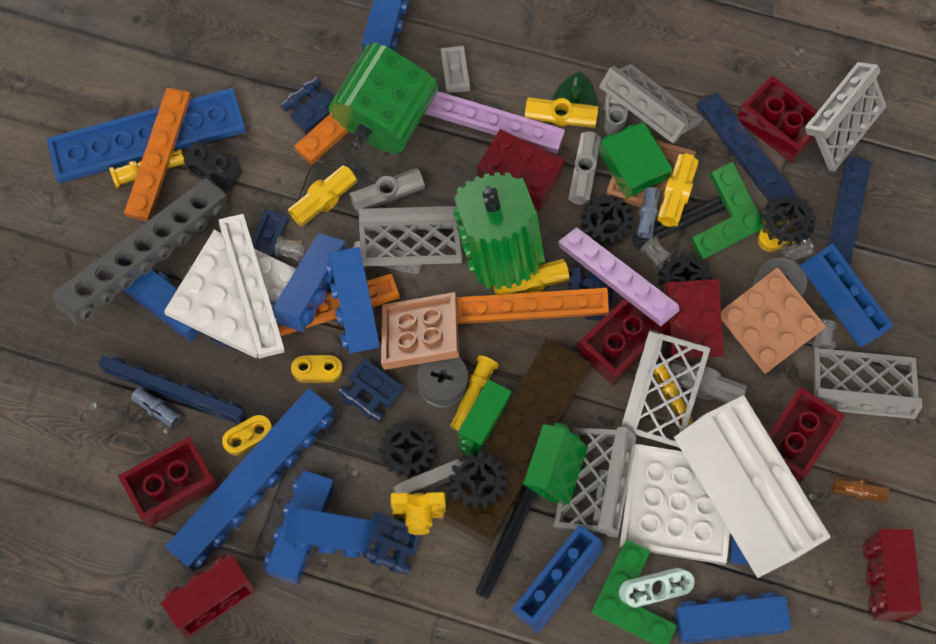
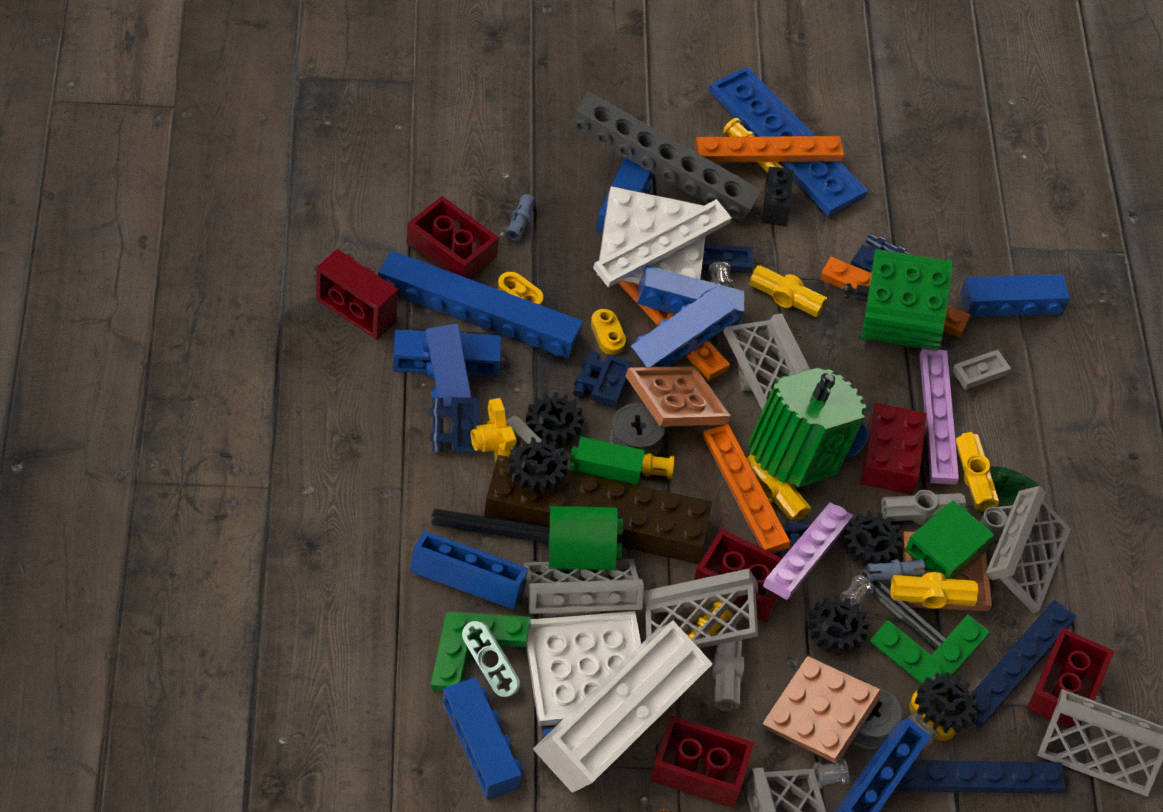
camera: 65 degrees right, 15 degrees down
(164, 386) = (543, 215): dark blue plate -> none
(401, 184) = (818, 342): light grey piece -> none
(698, 317) = (792, 631): dark red brick -> none

